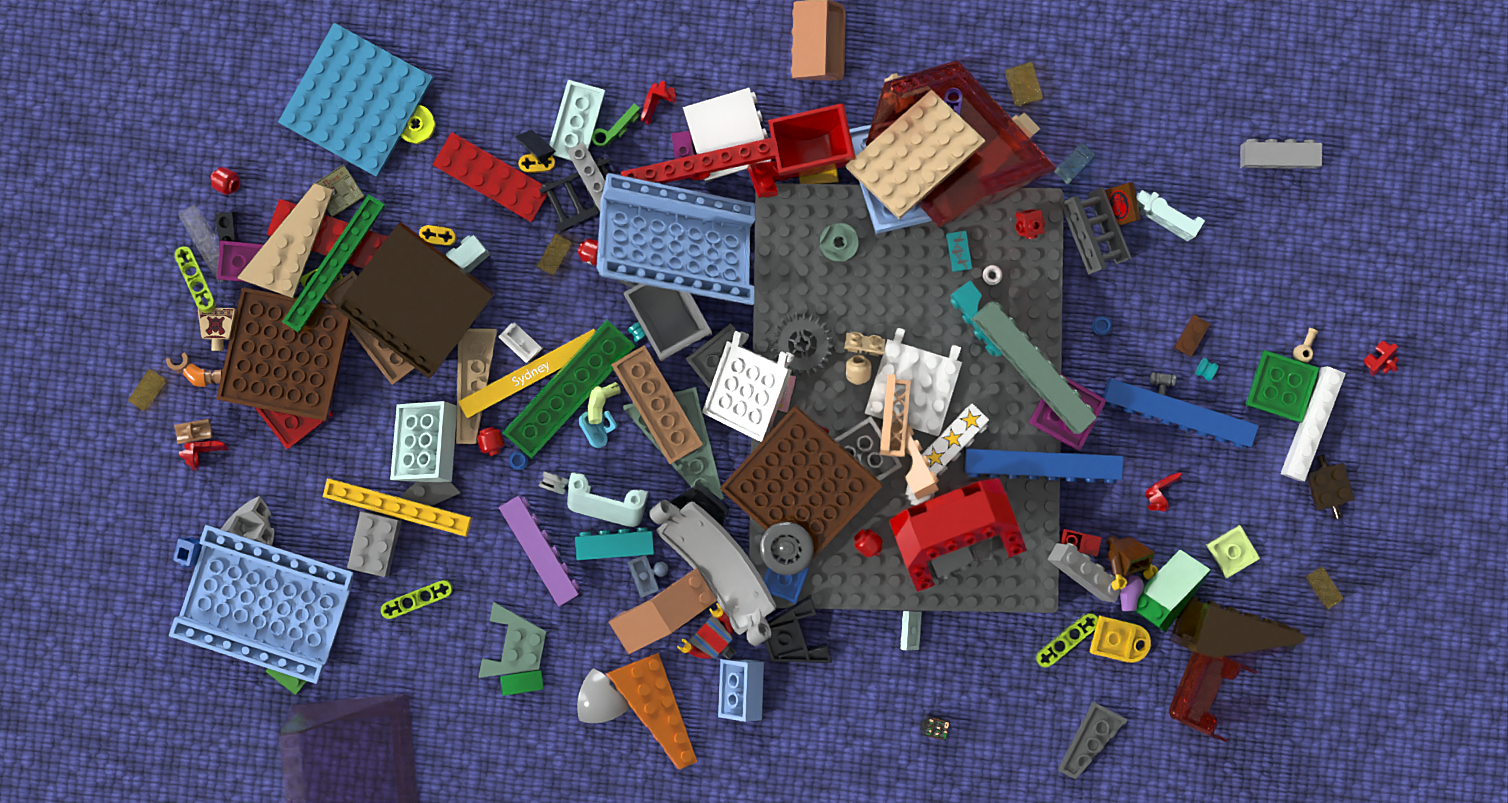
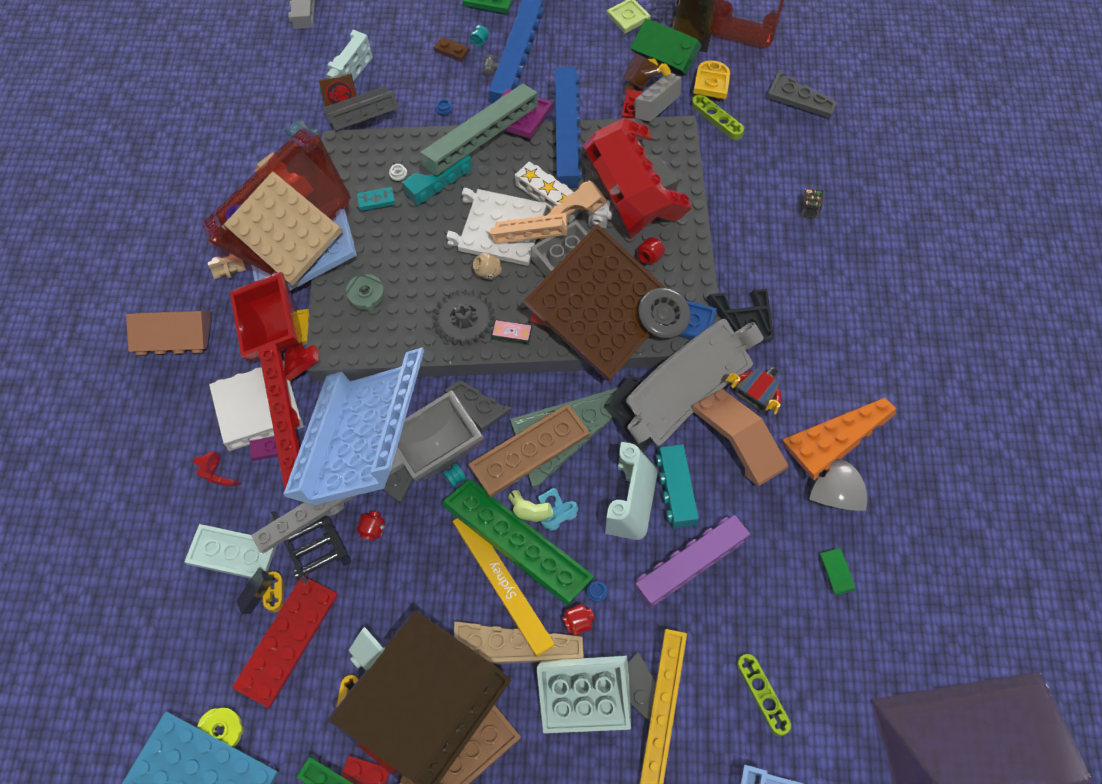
camera: 90 degrees left, 25 degrees down
(374, 544) = (707, 746): light grey brick -> none
(520, 342) = (470, 596): white hinge -> none
(522, 645) = (799, 576): sand green wing -> none
(553, 480) = (616, 548): light grey wheel -> none
(554, 254) = (373, 568): clear yellow tile -> none
(619, 128) = (242, 508): bright green plate -> none
(644, 575) = (705, 457): sand blue plate -> none
(741, 689) = (807, 362): light blue slope -> none
(747, 388) = (510, 363): white plate -> none
(856, 341) = (464, 263): tan hinge -> none
(911, 630) = (734, 228): light aqua plate -> none
(1023, 84) = (228, 171): clear yellow plate -> none
(1030, 223) = (351, 143): red brick -> none
(1131, 592) = (675, 66): medium lavender arm -> none
(1154, 493) = (582, 61): red hair -> none

